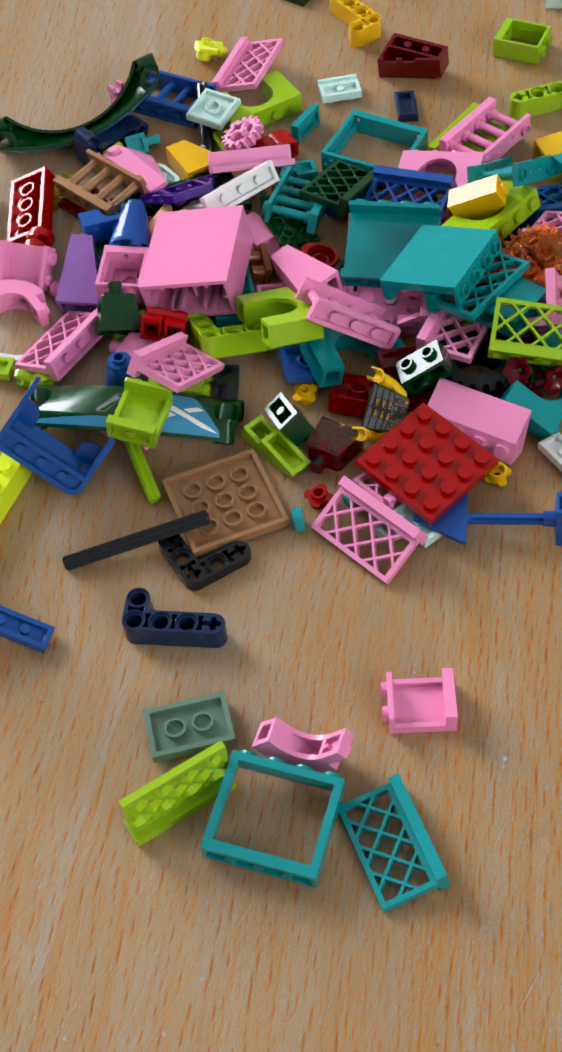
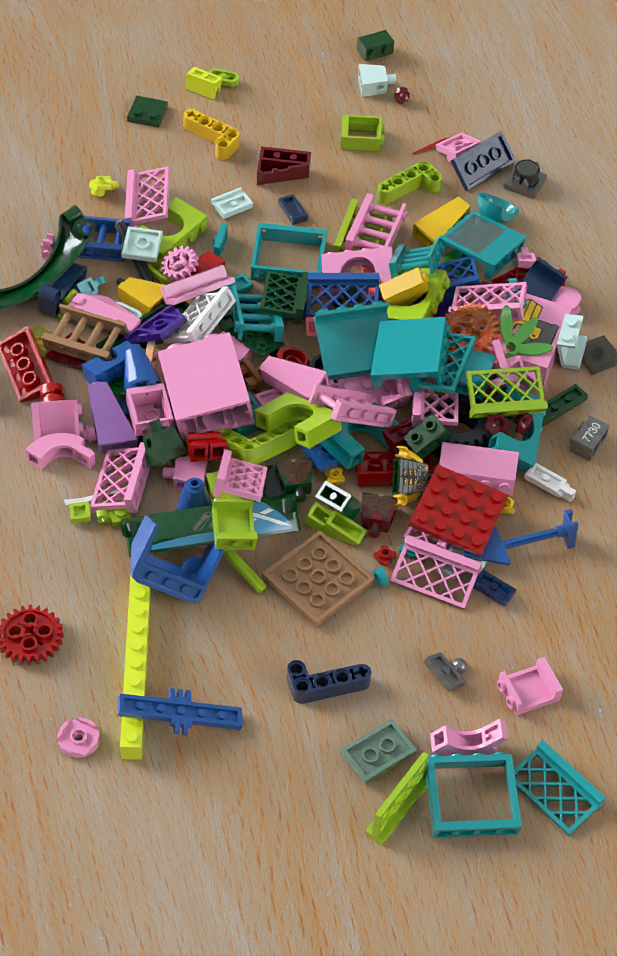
camera: 30 degrees left, 0 degrees up
(136, 540) = (268, 625): black axle -> none
(202, 567) = (324, 633): black beam -> none
(257, 384) = (295, 477): none -> torso
(322, 654) = (447, 673): none -> flat silver plate
(434, 568) = (494, 588): none -> clear blue plate

